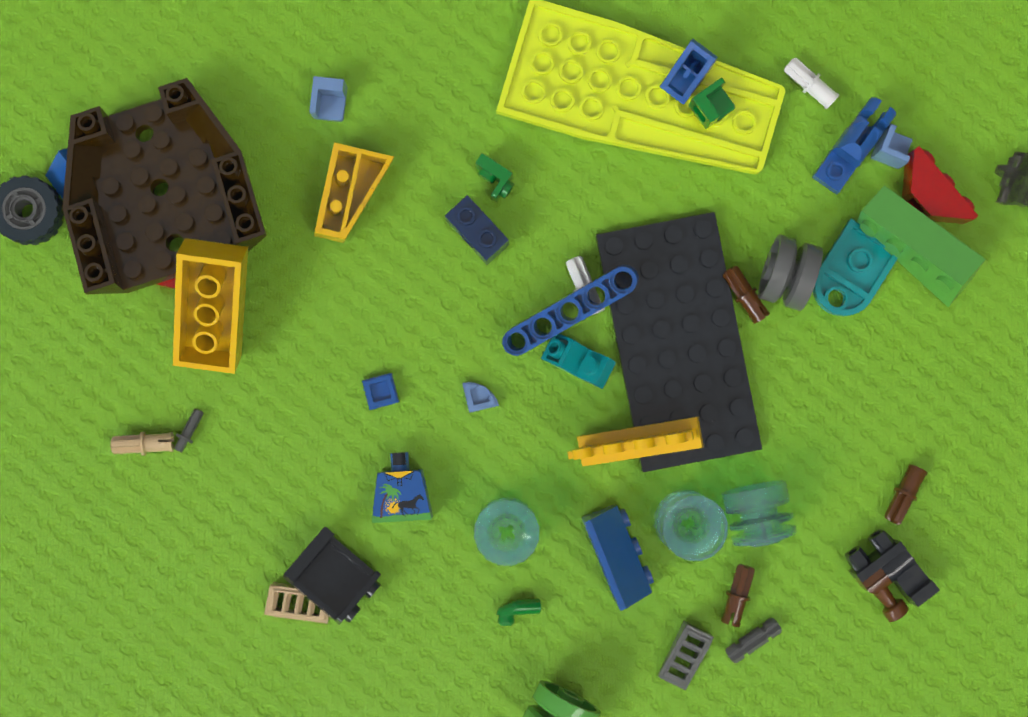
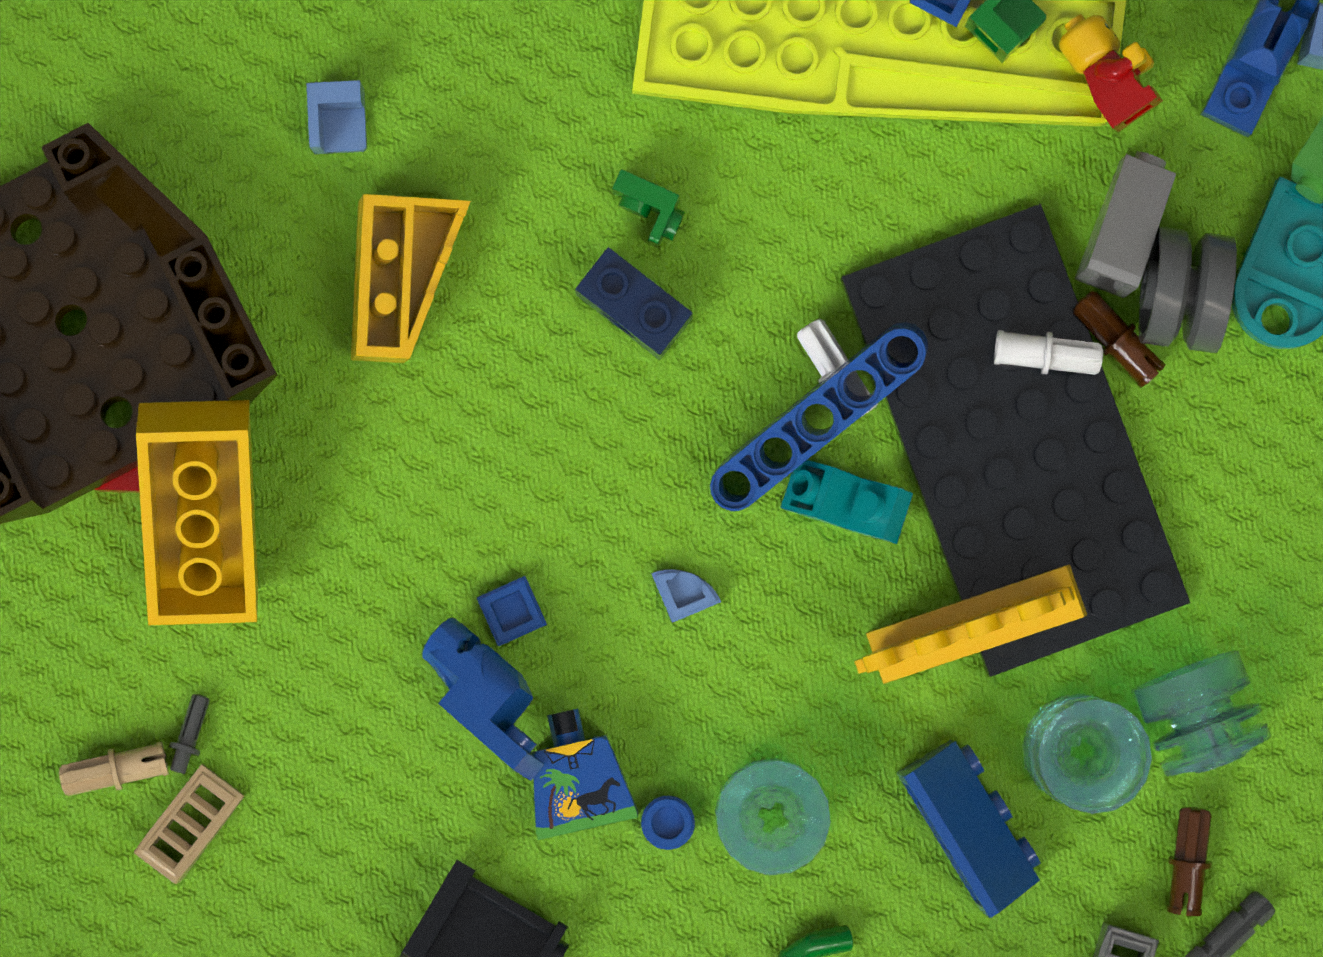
camera: 10 degrees left, 0 degrees up
(163, 482) = (162, 862): none -> tan slope
(355, 436) = (483, 693): none -> blue plate
(448, 524) = (667, 822): none -> blue tile
(705, 295) = (1048, 353): none -> white axle
(761, 231) = (1126, 225): none -> light grey slope
(767, 147) = (1112, 80): none -> piece

